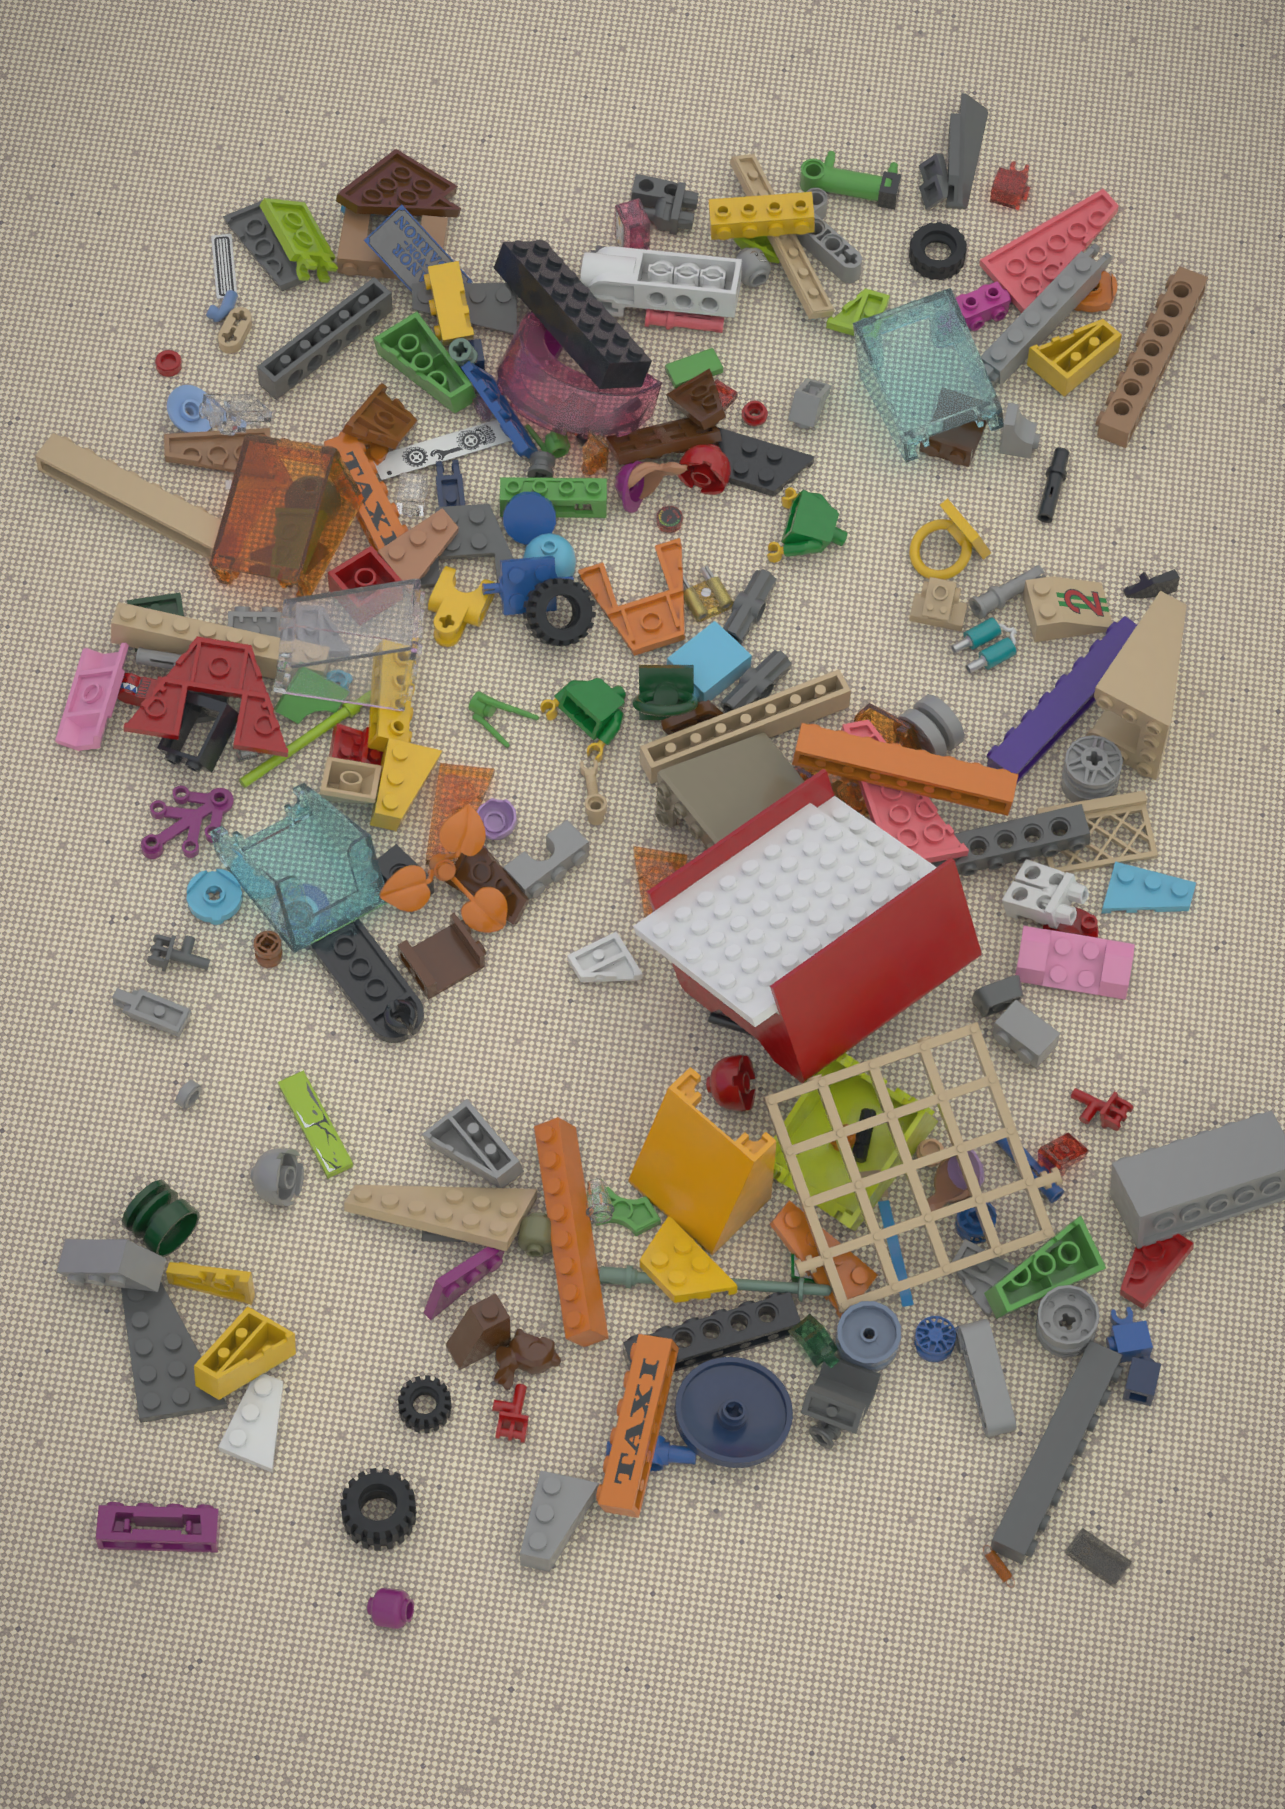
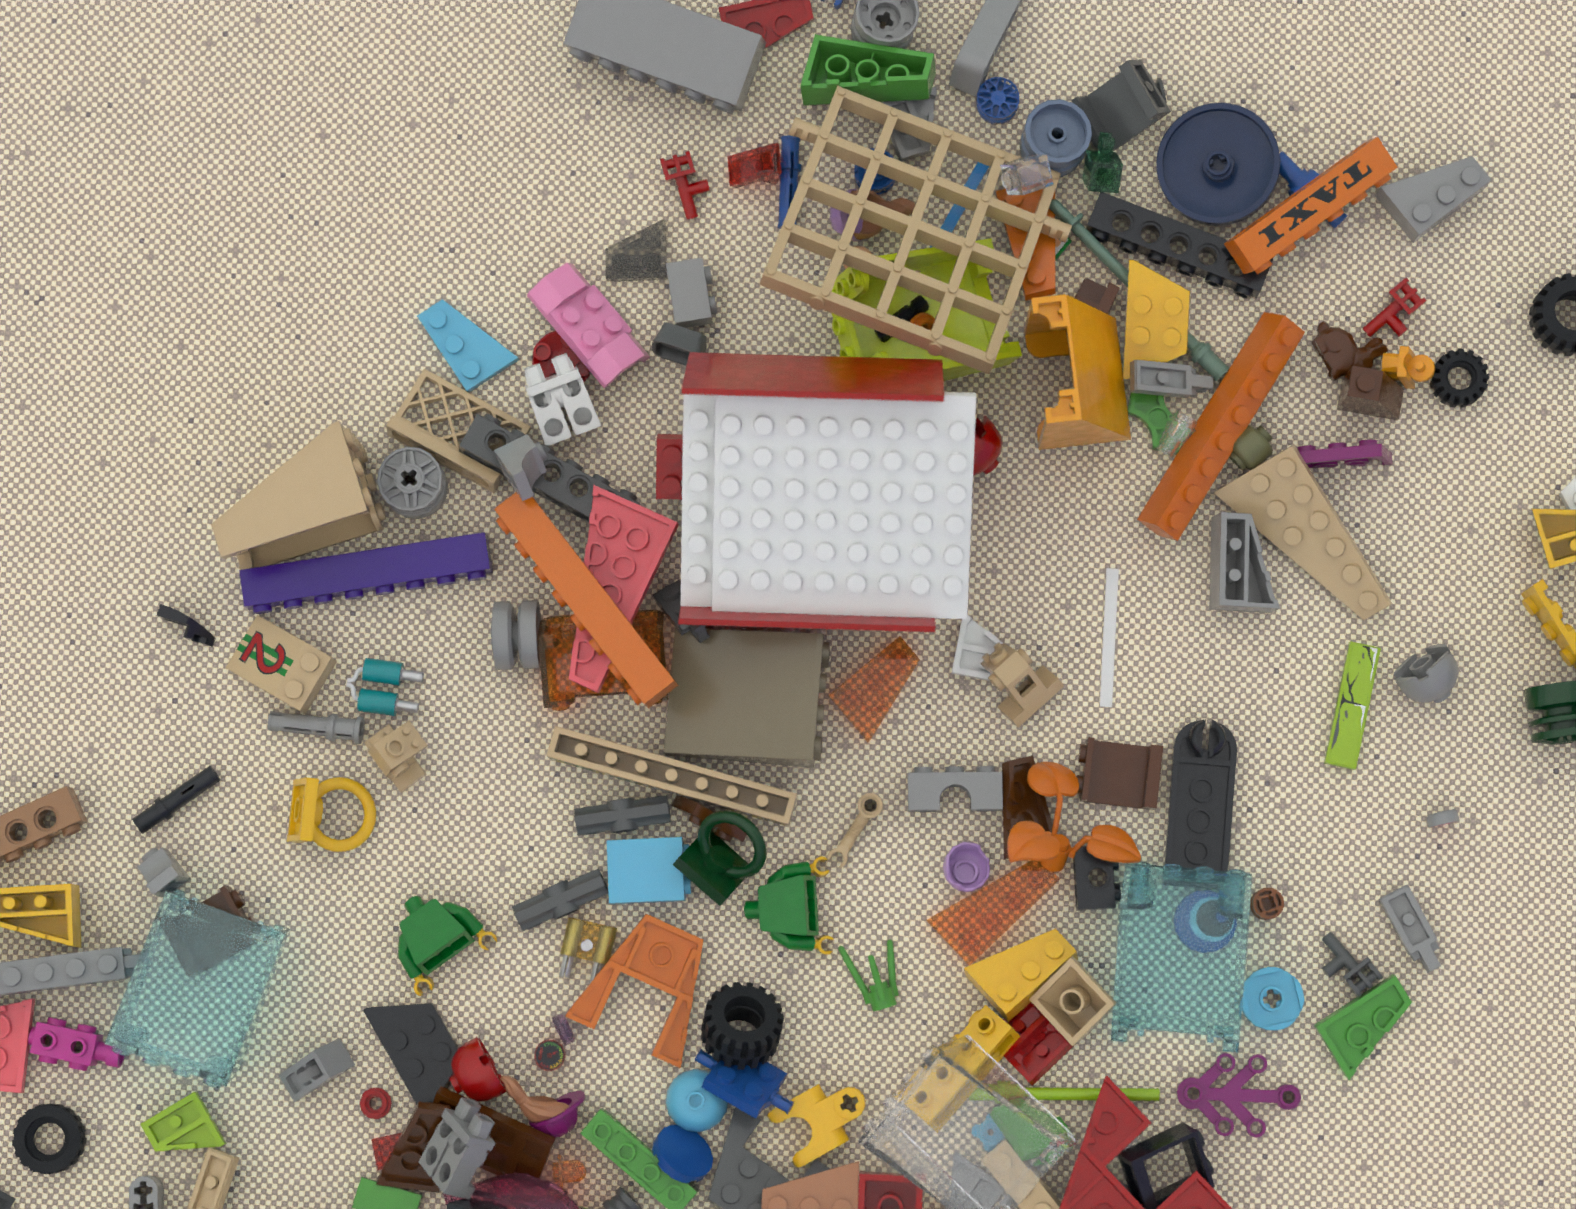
camera: 130 degrees left, 20 degrees up
(138, 920) = (1361, 1023): none -> bright green wing
(470, 1371) = (1408, 367): none -> light orange hips
(527, 1043) = (1109, 635): none -> white sticker
(569, 949) = (1007, 670): none -> tan tile
(636, 1233) = (1167, 379): none -> light grey hinge
(673, 532) = (563, 1029): none -> clear purple tile
(674, 402) = (458, 1148): none -> light grey hips
(739, 1255) = (1097, 295): none -> reddish brown panel
(863, 1276) = (1026, 174): none -> clear brick
(1027, 812) = (522, 464): none -> light grey arch
(1085, 1039) = (639, 256): none -> clear smoke wing

